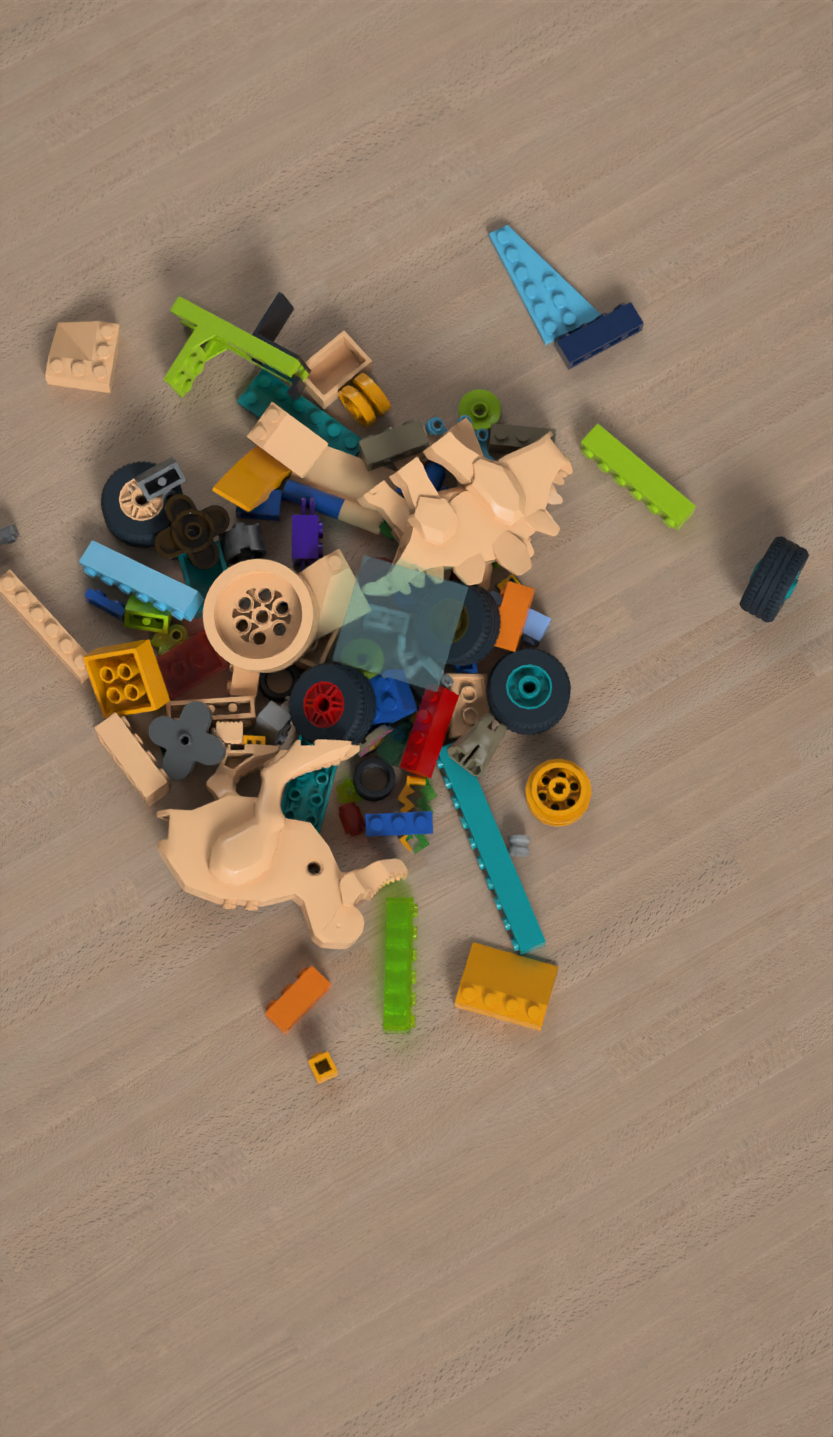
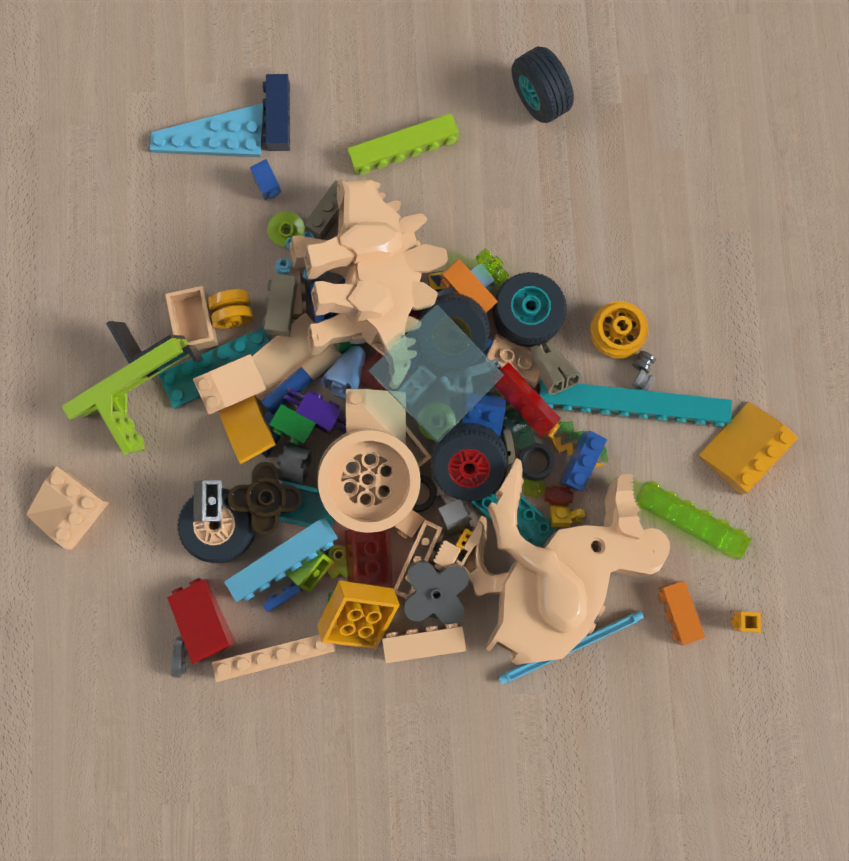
camera: 65 degrees left, 5 degrees up
(42, 539) = (200, 620): none -> red slope
(206, 909) = (596, 635): none -> medium azure piece
(278, 520) = (292, 425): none -> green brick
(333, 834) = (562, 516): none -> yellow plate
(356, 542) = (345, 372): none -> light blue cone
(518, 362) = (265, 180): none -> blue slope
(539, 836) = (644, 361): none -> dark grey wheel
(553, 630) = (493, 265): none -> clear neon green plate

